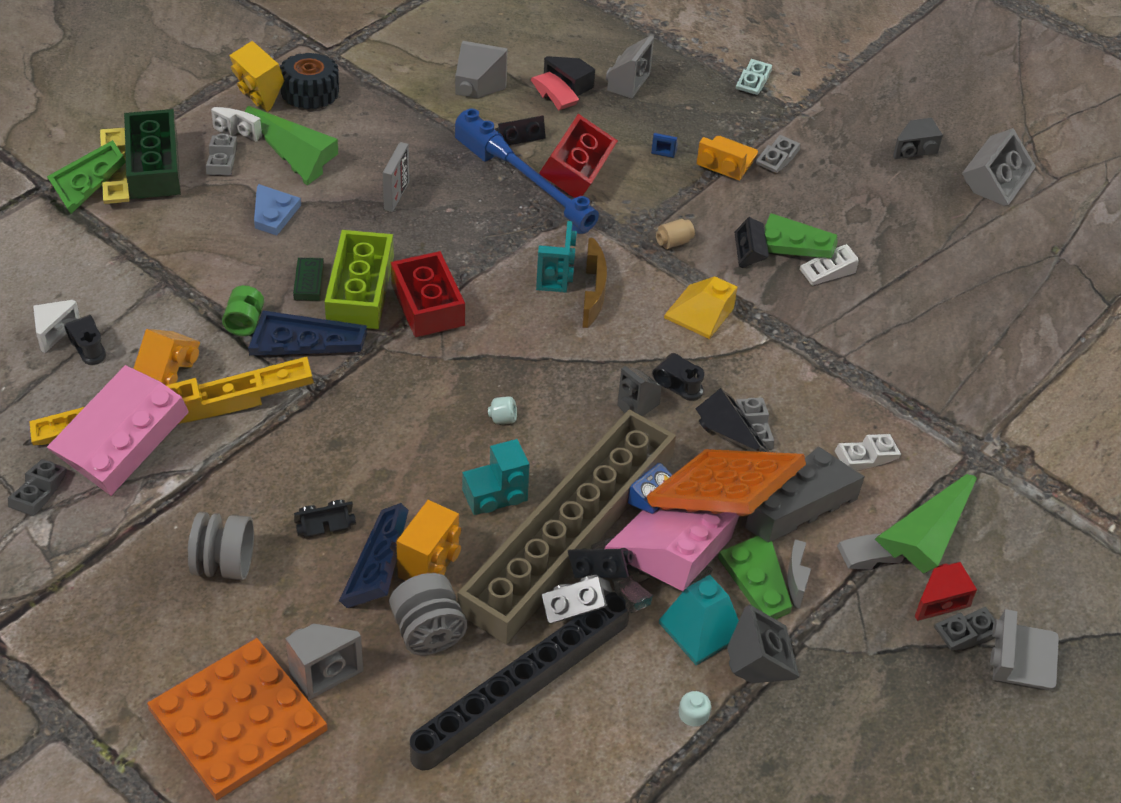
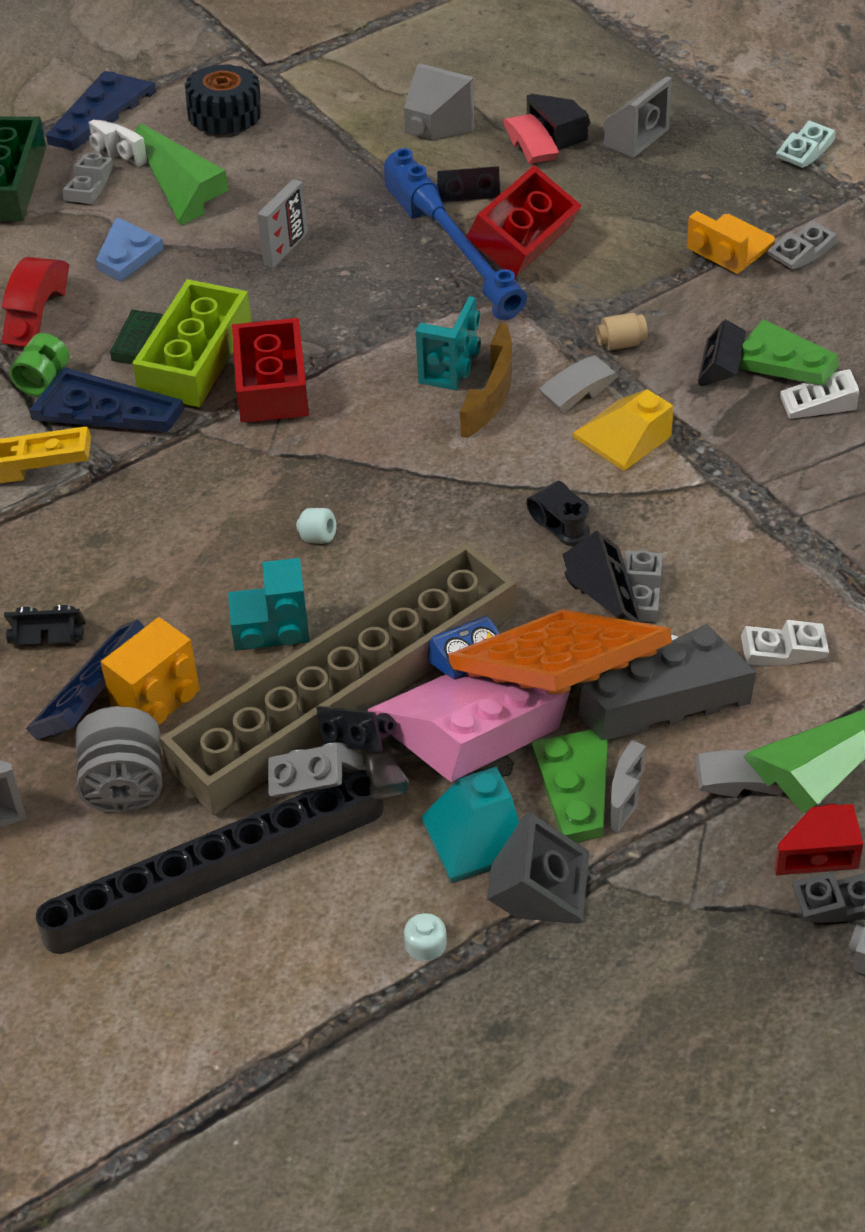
camera: 20 degrees right, 0 degrees up
(208, 91) = (101, 102): none -> dark blue wing
(216, 252) = (26, 296): none -> red arch
(257, 75) = (157, 85): yellow slope -> none
(637, 391) = (494, 524): dark grey slope -> none
(654, 276) = (573, 383): none -> light grey slope
(664, 145) = (650, 219): blue slope -> none

